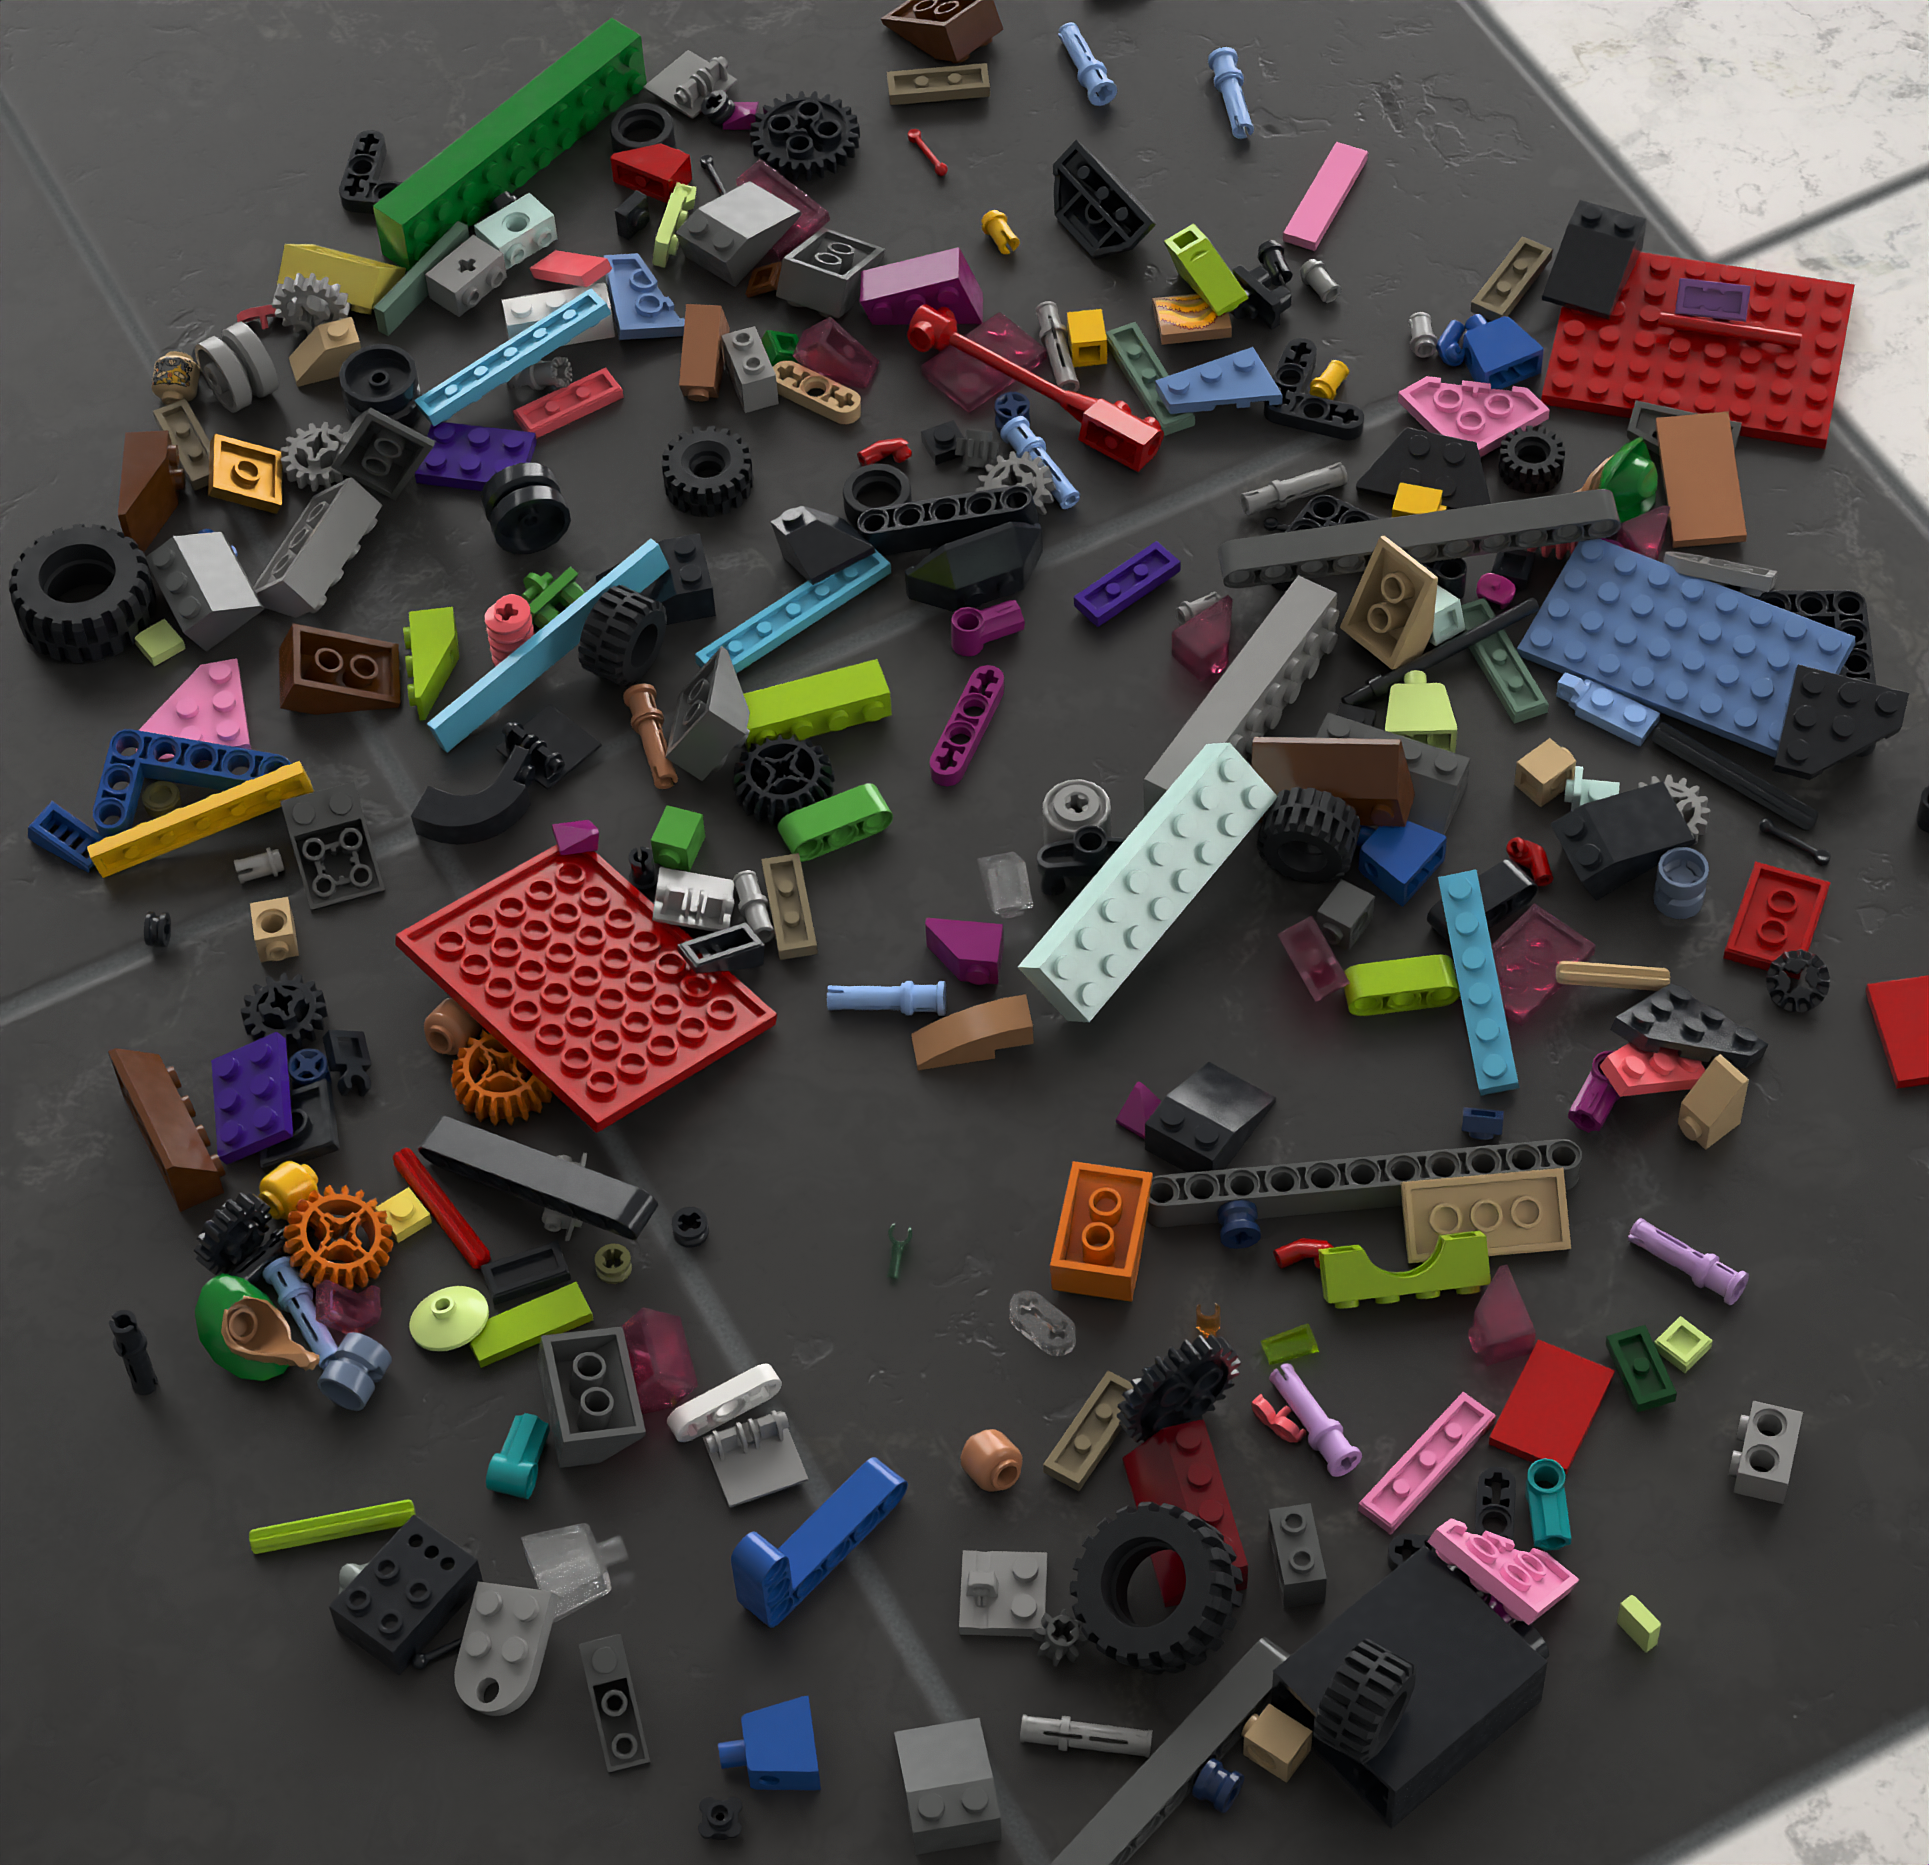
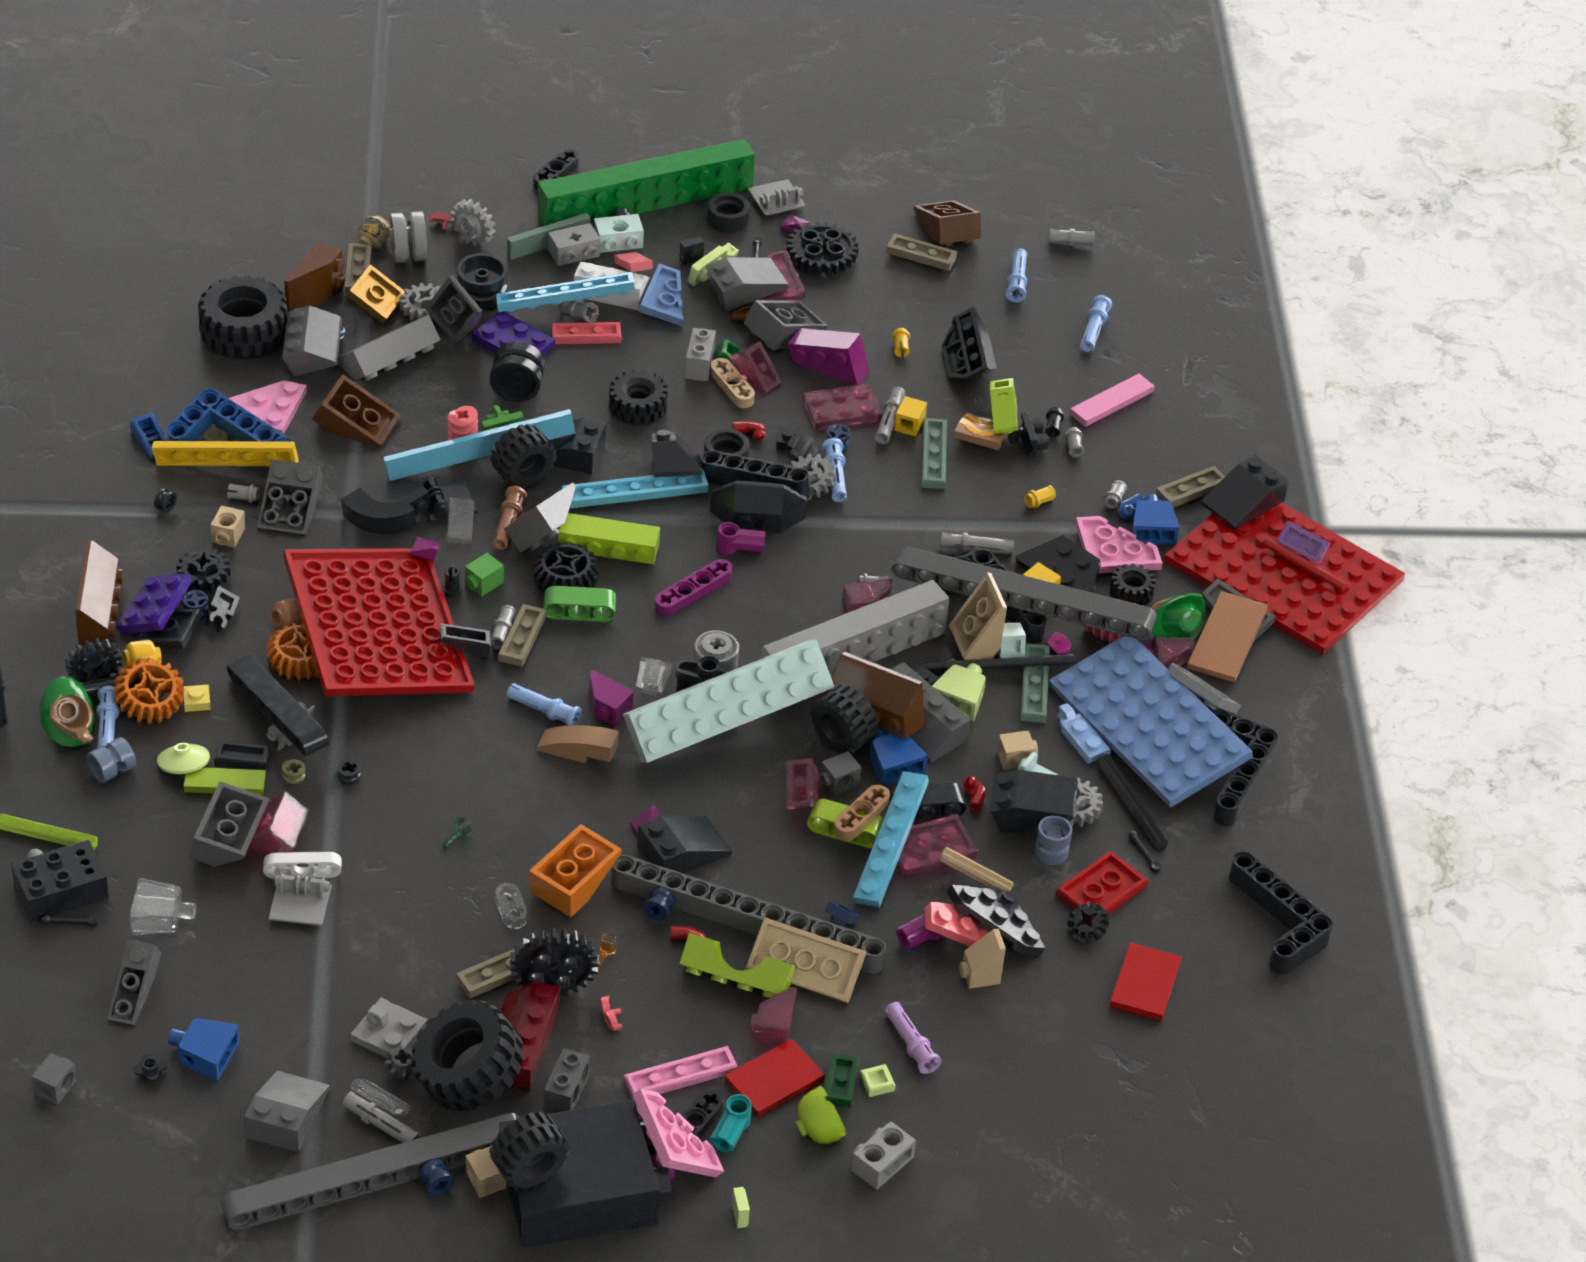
camera: 20 degrees right, 10 degrees down
(159, 642) = (270, 361): yellowish green tile -> none
(324, 351) = (464, 247): tan slope -> none
(346, 1309) = (128, 726): clear pink bracket -> none
(361, 278) = (507, 217): light yellow slope -> none
(433, 657) = (415, 426): lime slope -> none
(441, 1208) = (219, 703): red axle -> none
(503, 1645) = (92, 928): light grey plate -> none
(516, 1467) = (165, 847): teal piece -> none
(590, 770) = (460, 520): none -> clear tile
(652, 170) = (720, 230): red slope -> none
(693, 900) = (468, 607): light grey hinge -> none
(702, 351) = (675, 336): nougat slope -> none
(717, 107) = (782, 214): black bush -> none
(777, 1580) = (299, 959): blue beam -> none
(914, 136) = (889, 275): red hinge -> none
(991, 1460) = (429, 958): nougat head -> none
(1063, 1703) = (380, 1097): none -> clear tile
(1103, 424) = (885, 463): red bar -> none
(1127, 583) = (840, 552): dark purple plate -> none
(1227, 380) = (977, 470): medium blue wing -> none
(1290, 1344) = (646, 979): clear neon green piece -> none
(1298, 403) = (1032, 519): black beam -> none
(1324, 1433) = (630, 1030): lavender pin -> none
(1428, 976) = (860, 822): none -> medium nougat beam
(1514, 566) = (1079, 636): black plate -> none
(1656, 1440) = (819, 1118): none -> lime cylinder
(1833, 721) = (1207, 791): black plate -> none

